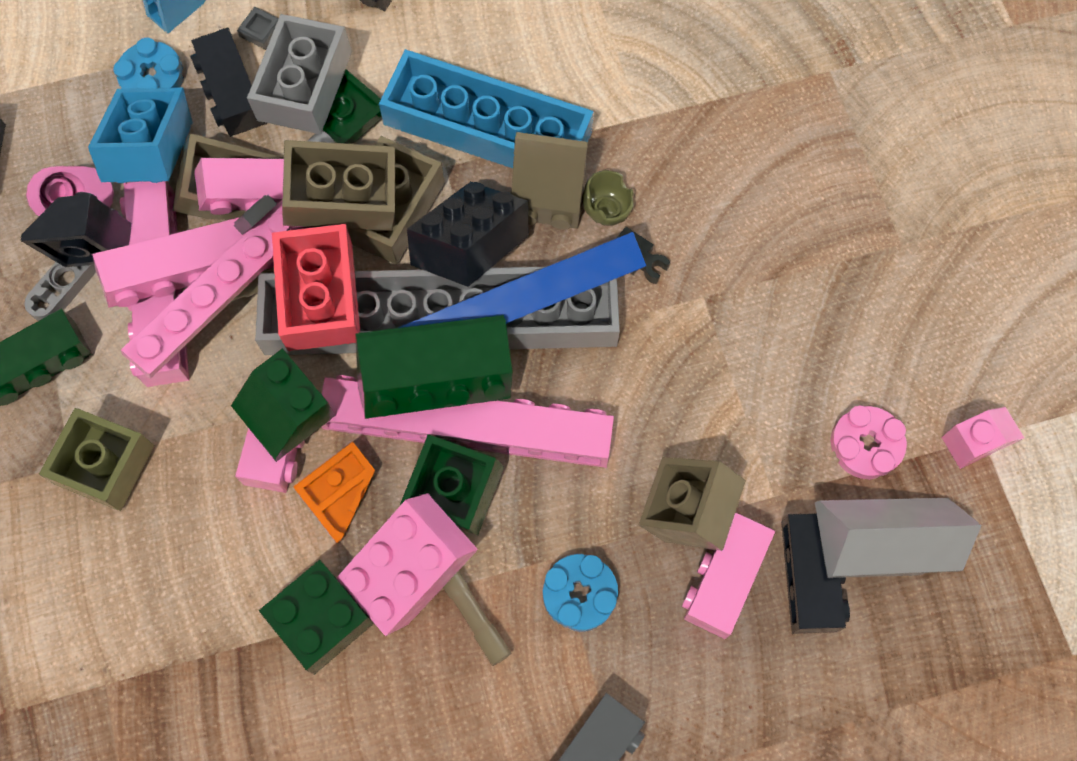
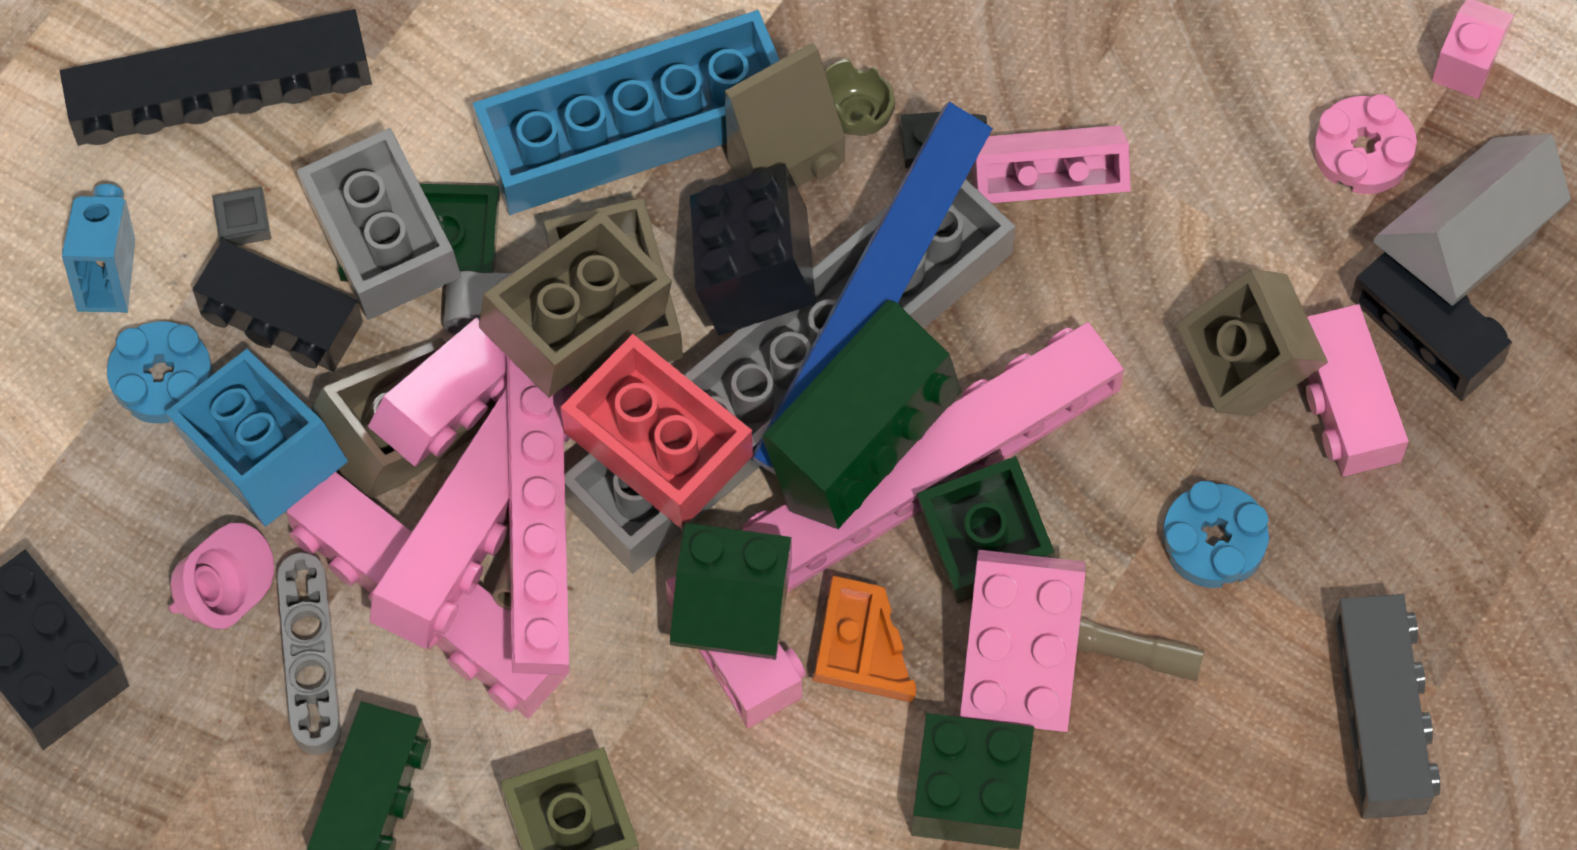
camera: 40 degrees left, 5 degrees down
(76, 229) = (314, 593): black slope -> none
(254, 214) = (500, 413): dark grey tile -> none
(676, 314) = (1053, 164): none -> bright pink brick

